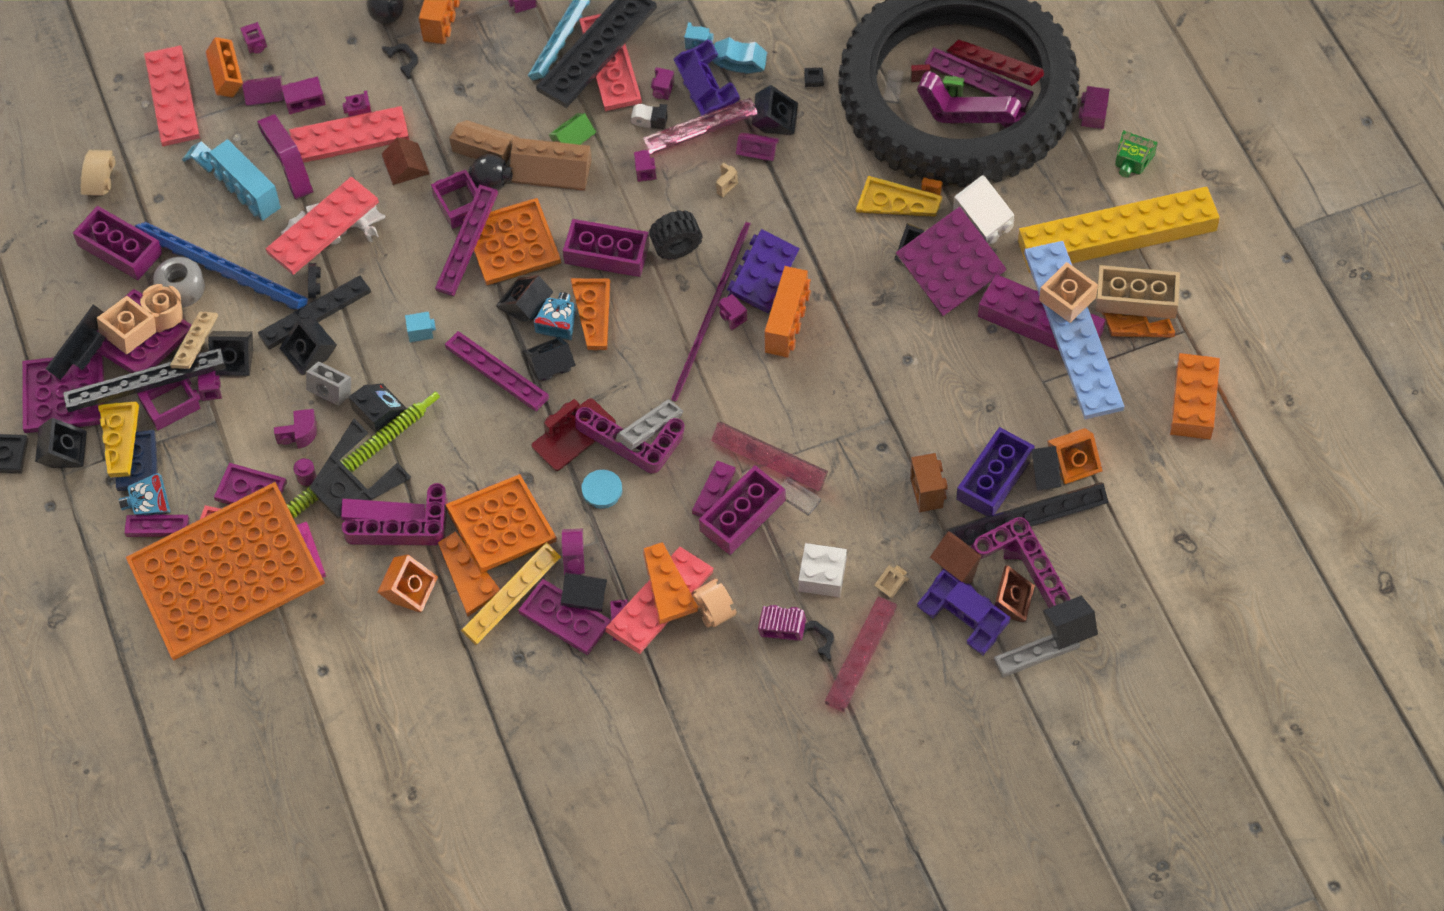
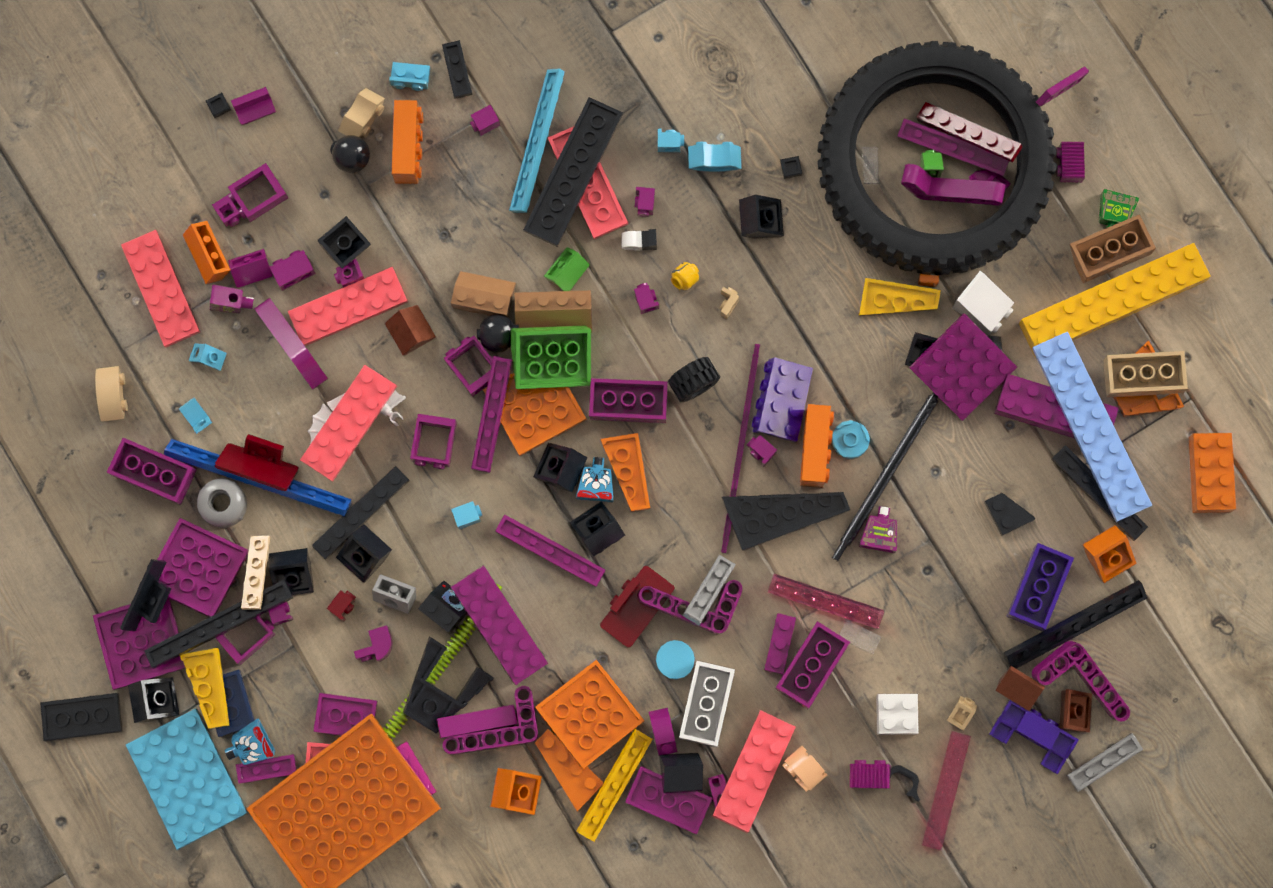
camera: 10 degrees left, 20 degrees up
(73, 524) = (186, 779): none -> medium azure plate
(126, 324) = (187, 569): light nougat brick -> none
(164, 305) = (216, 531): light nougat brick -> none
(173, 202) = (195, 415): none -> medium azure bracket
(227, 248) = (258, 462): none -> dark red bracket
(233, 108) = (221, 299): none -> magenta torso
(244, 180) = (259, 381): medium azure brick -> none
(273, 388) = (342, 604): none -> dark red brick
(290, 39) = (266, 205): none -> magenta window
(304, 471) = (393, 692): magenta brick -> none
(313, 287) = (354, 488): black plate -> none
(357, 74) = (344, 242): none -> black slope
(408, 51) = (386, 201): black helmet -> none
(408, 241) = (434, 421): none -> magenta window
(426, 423) = (498, 625): none -> magenta brick
(537, 196) = (551, 356): none -> bright green slope
(624, 529) = (706, 704): none -> white brick
(668, 587) = (763, 765): orange wing -> none
(687, 151) = (685, 276): none -> yellow head
(700, 80) = (684, 196): dark purple bracket -> none
(700, 126) = (692, 246): clear pink plate -> none
(735, 372) = (772, 516): none -> black wing
(756, 146) = (750, 257): magenta panel -> none
(812, 395) = (886, 475): none -> black axle
(825, 317) = (850, 439): none -> medium azure tile
(837, 402) = (880, 532): none -> magenta torso
(918, 71) = (895, 148): dark red tile -> none
(928, 482) = (980, 609): dark orange brick -> none
(975, 406) = (1007, 513): none -> black wing
(1046, 467) = (1087, 576): black brick -> none
(1061, 385) = (1084, 479): none -> black plate
(1068, 292) = (1085, 397): light nougat brick -> none
(1071, 622) = (1133, 732): black slope -> none
(1094, 34) = (1062, 86): none -> magenta tile
(1122, 182) = (1111, 248): none -> medium nougat slope

